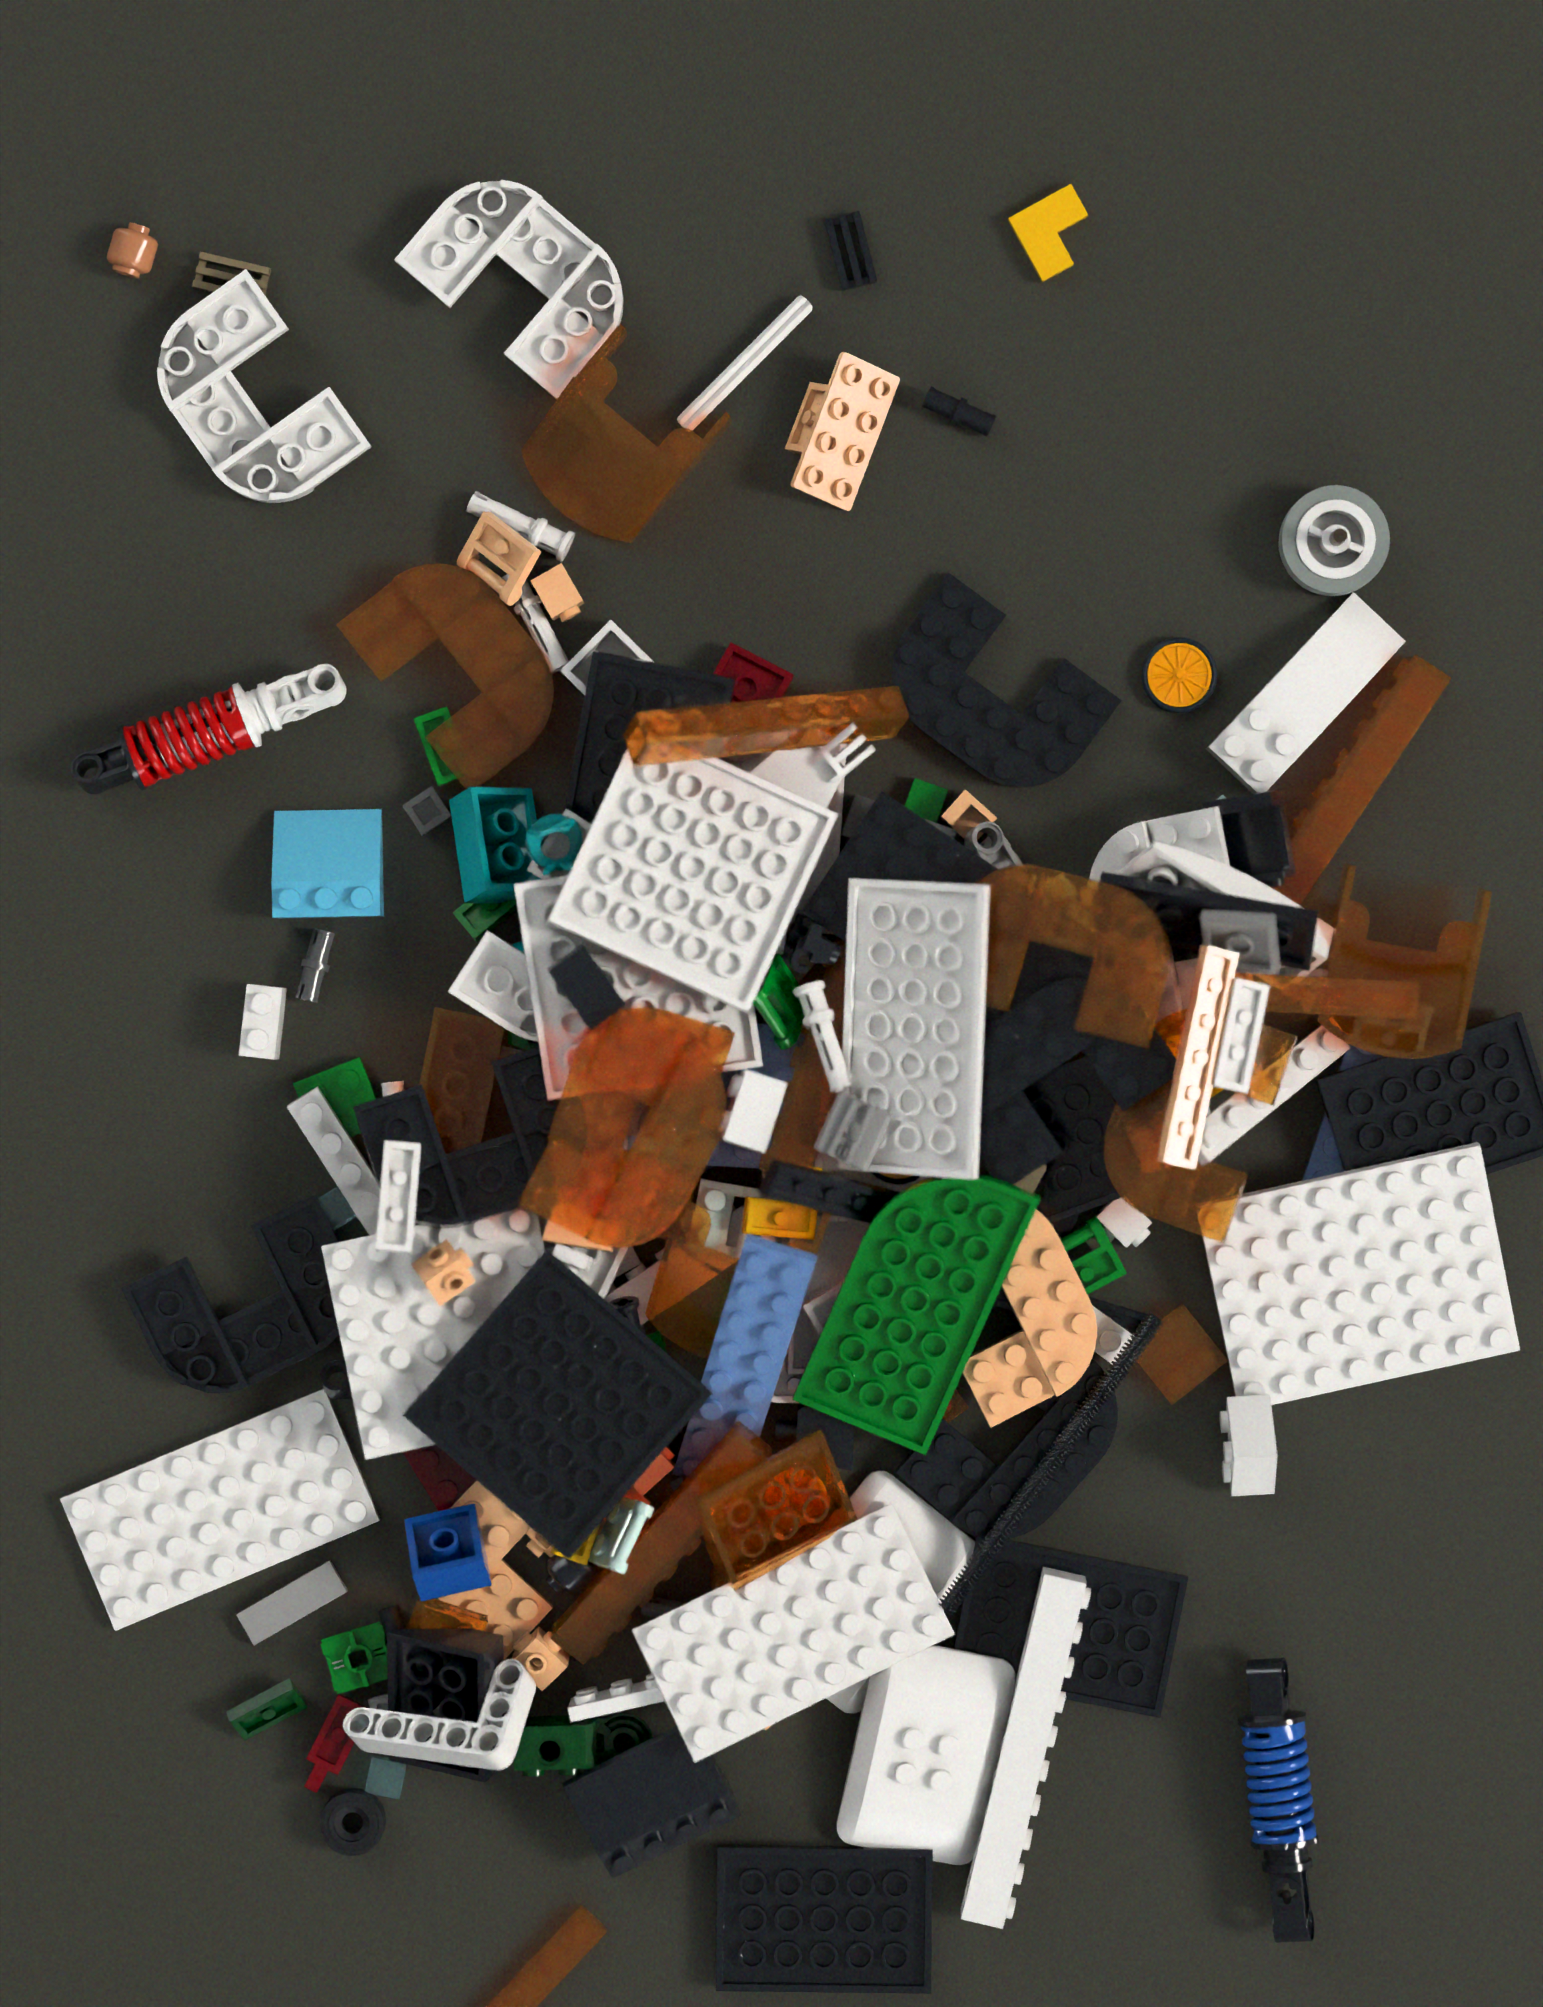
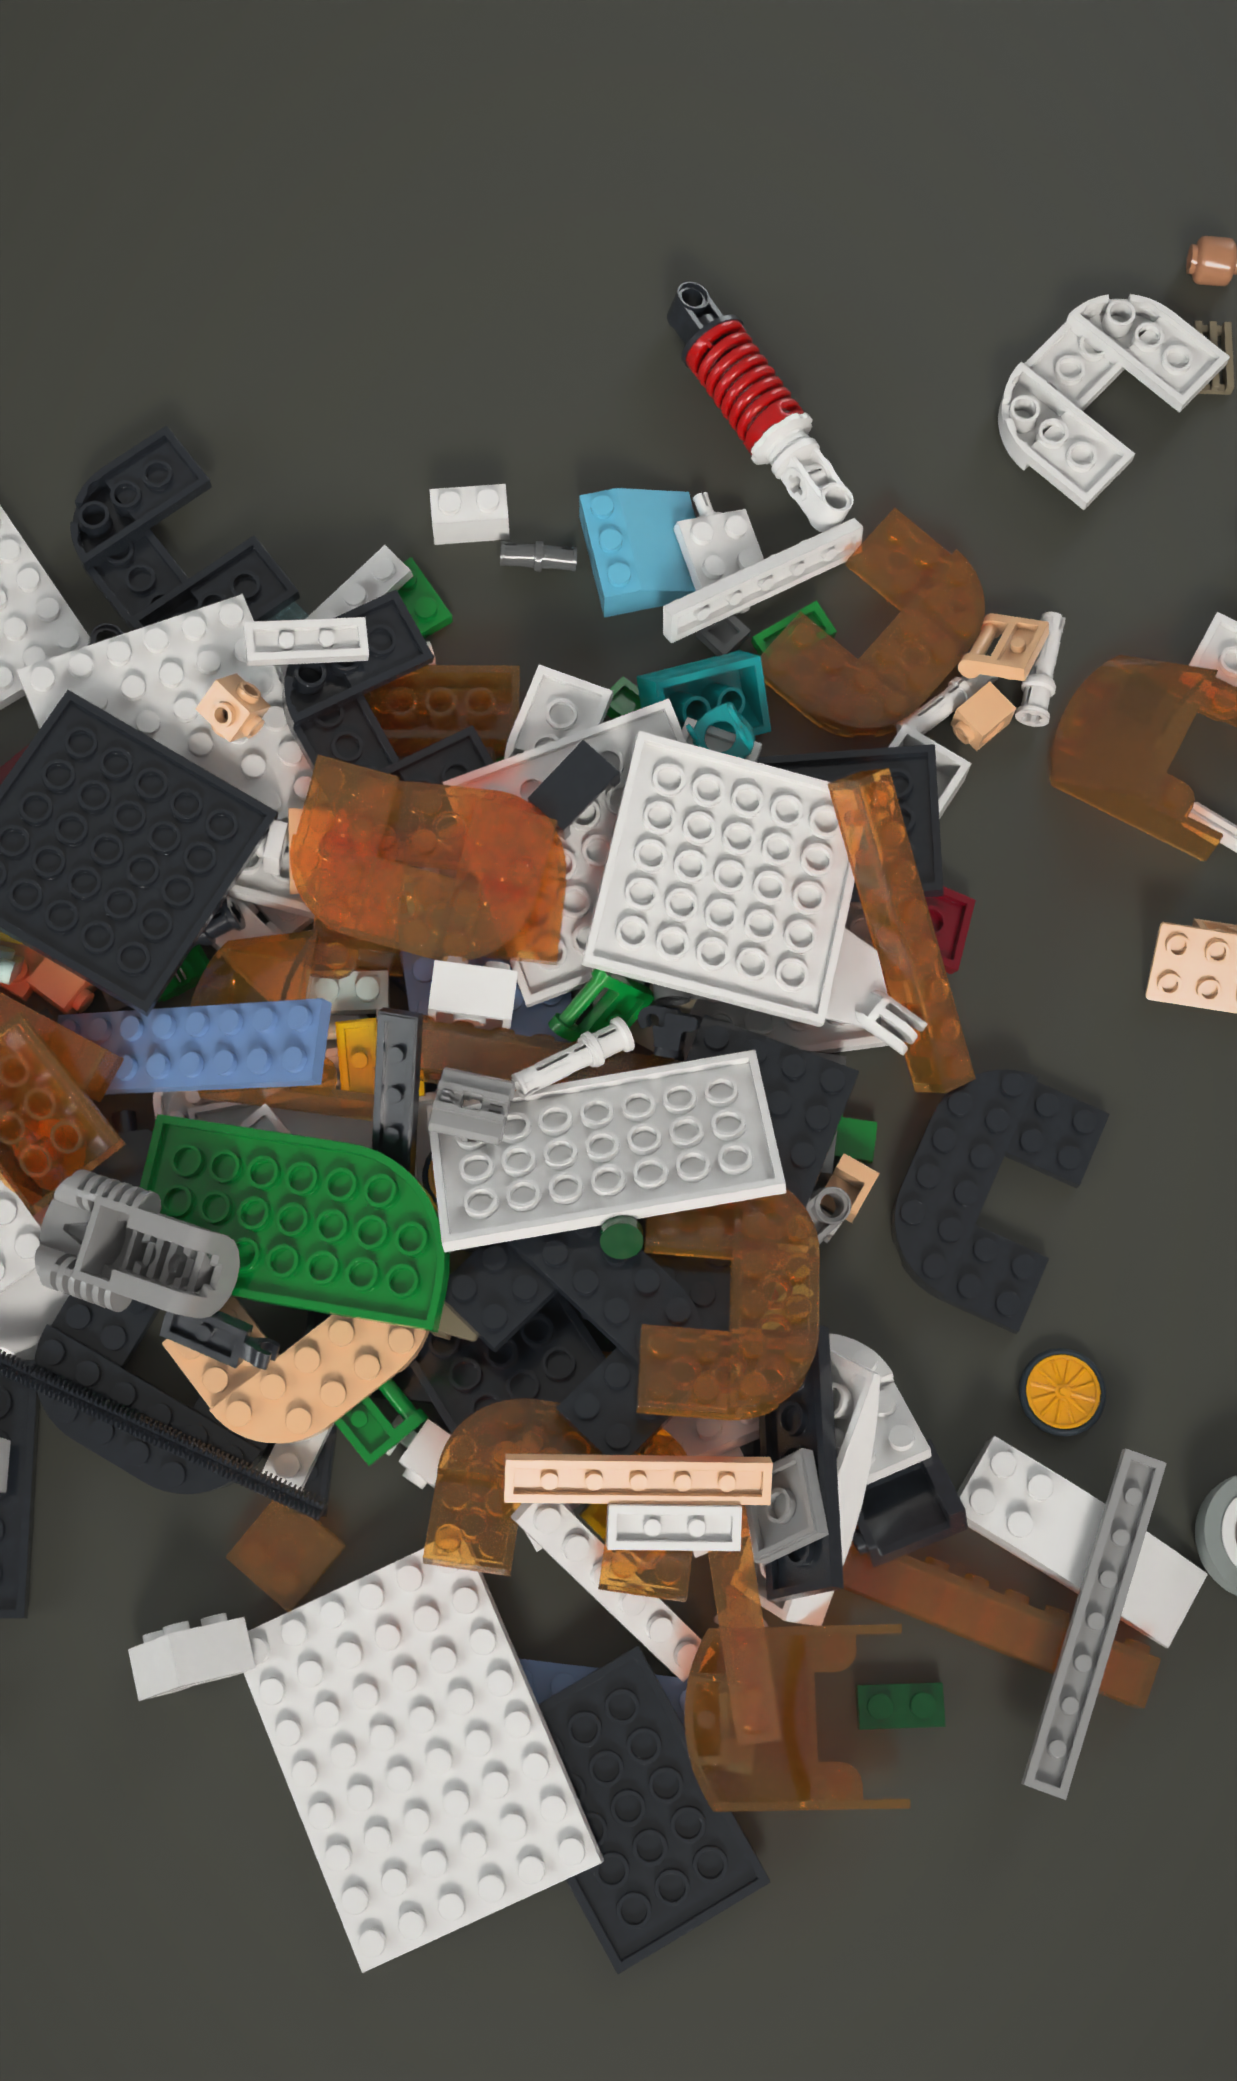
camera: 75 degrees right, 15 degrees down
(346, 795) = (716, 543): none -> white plate
(385, 755) = (761, 580): none -> white plate
(914, 1448) = (115, 1246): none -> light grey connector
(997, 1029) = (621, 1237): none -> dark green tile
(998, 1379) = (220, 1338): none -> black plate
(1376, 703) = (1093, 1624): none -> light grey plate
(1405, 873) = (900, 1706): none -> dark green plate

